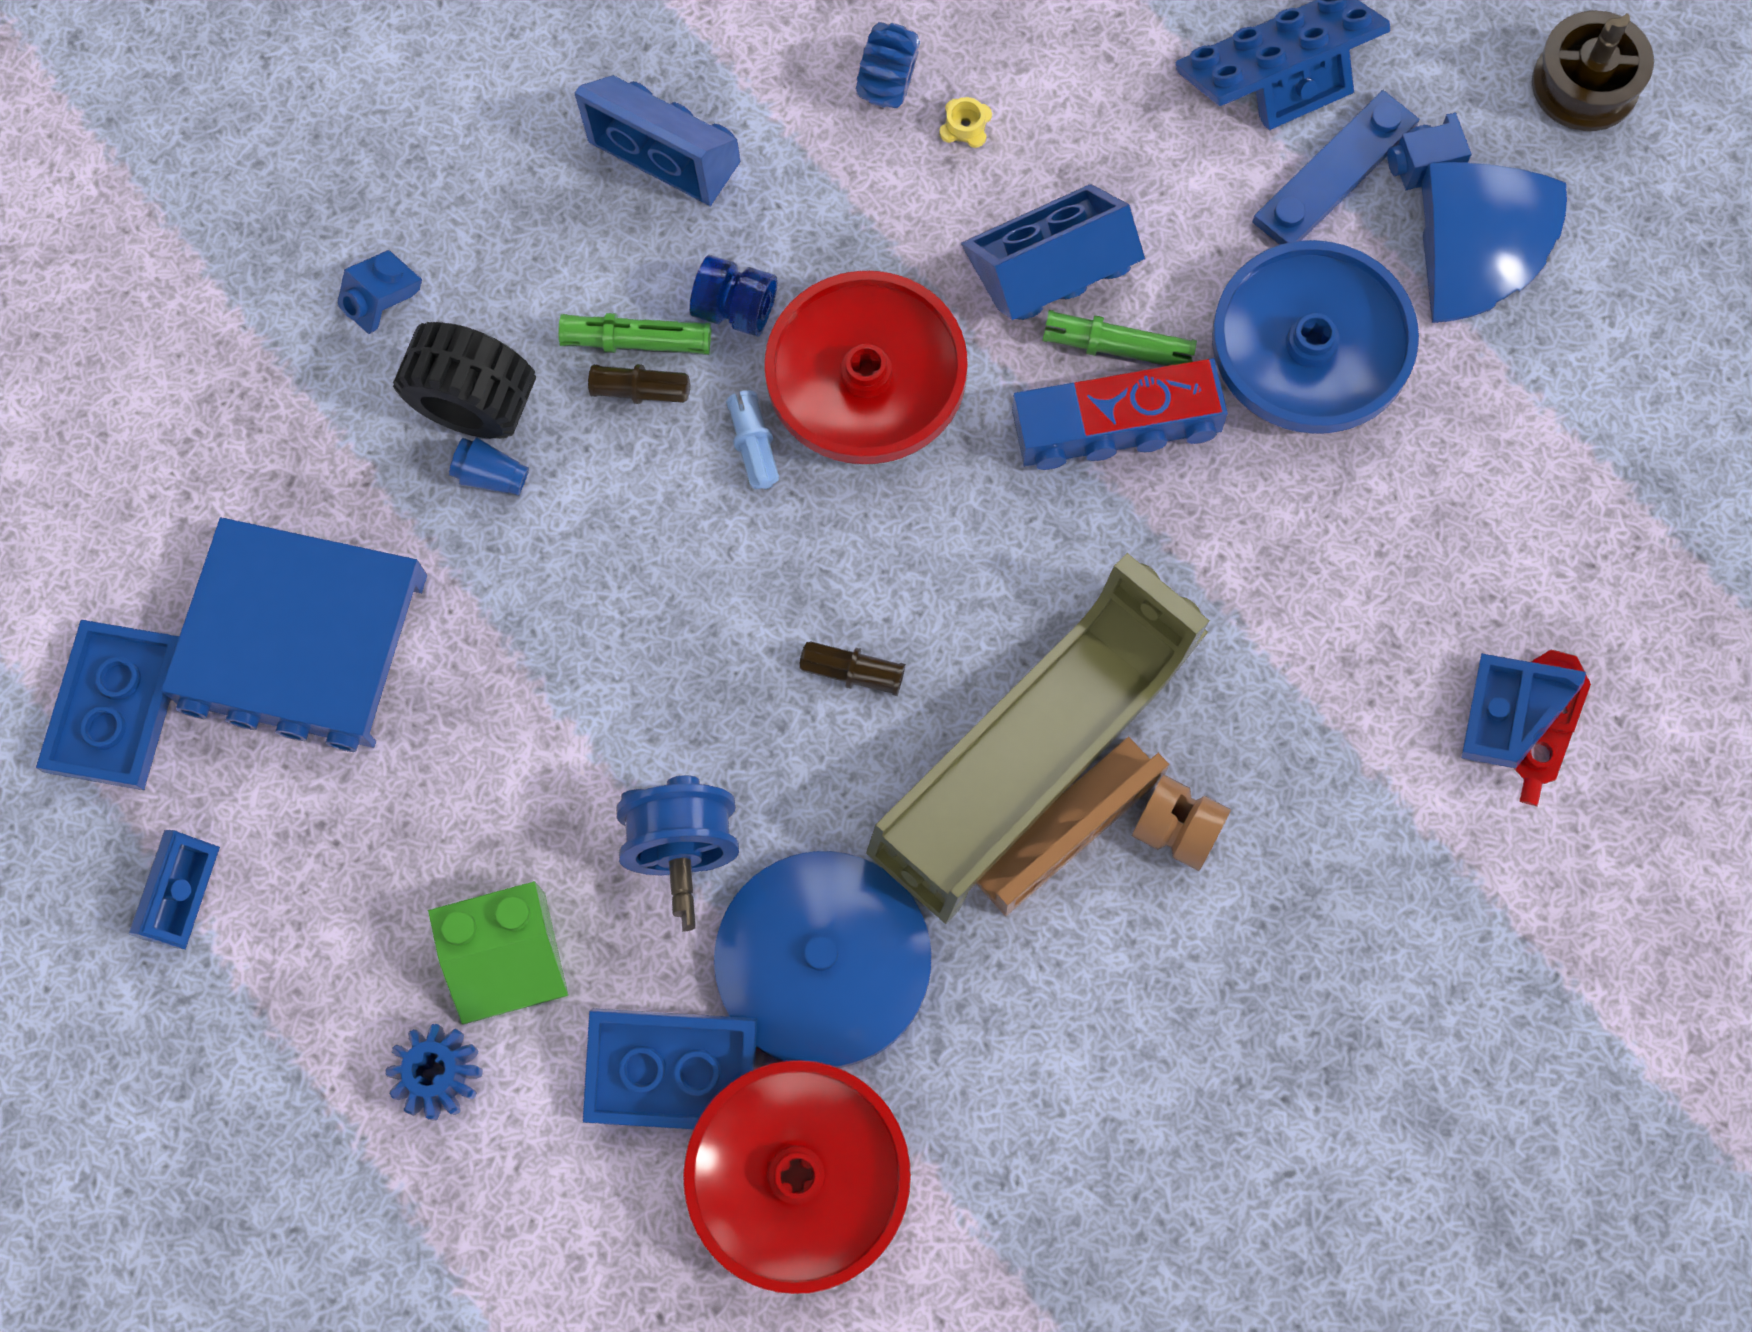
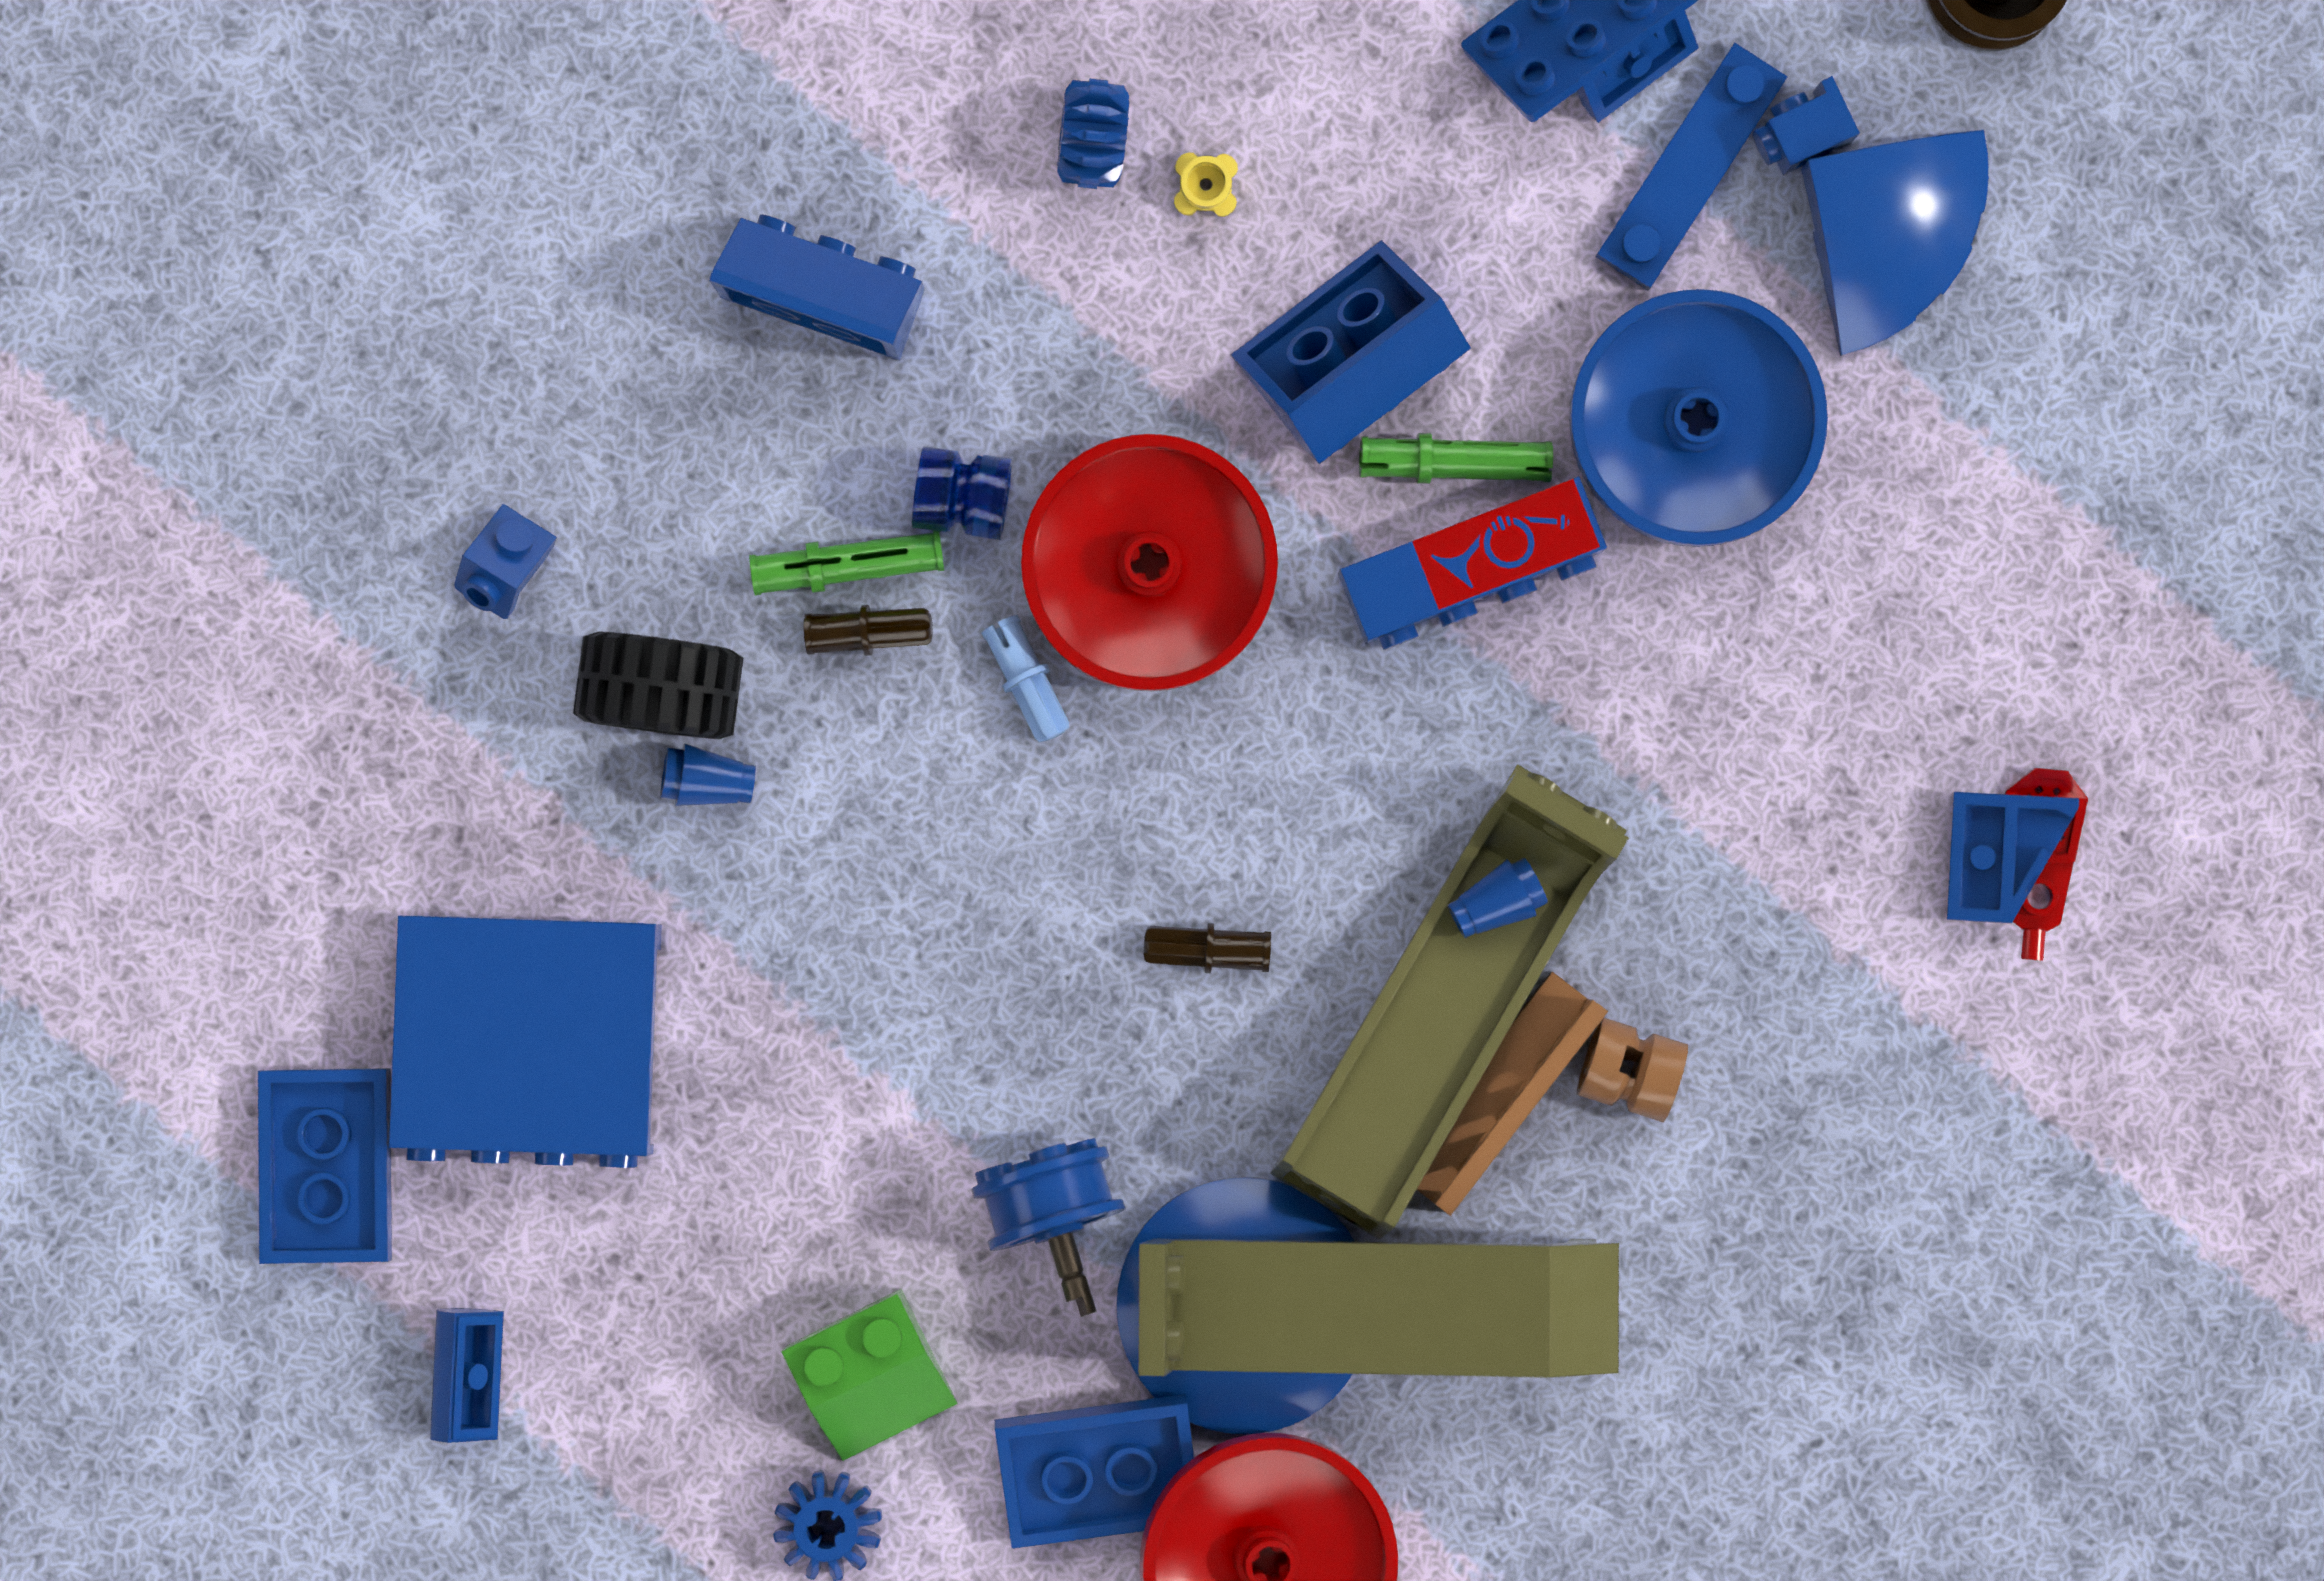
camera: 20 degrees left, 15 degrees up
(933, 969) = (1379, 1307): none -> olive panel
(1095, 665) = (1499, 899): none -> blue cone

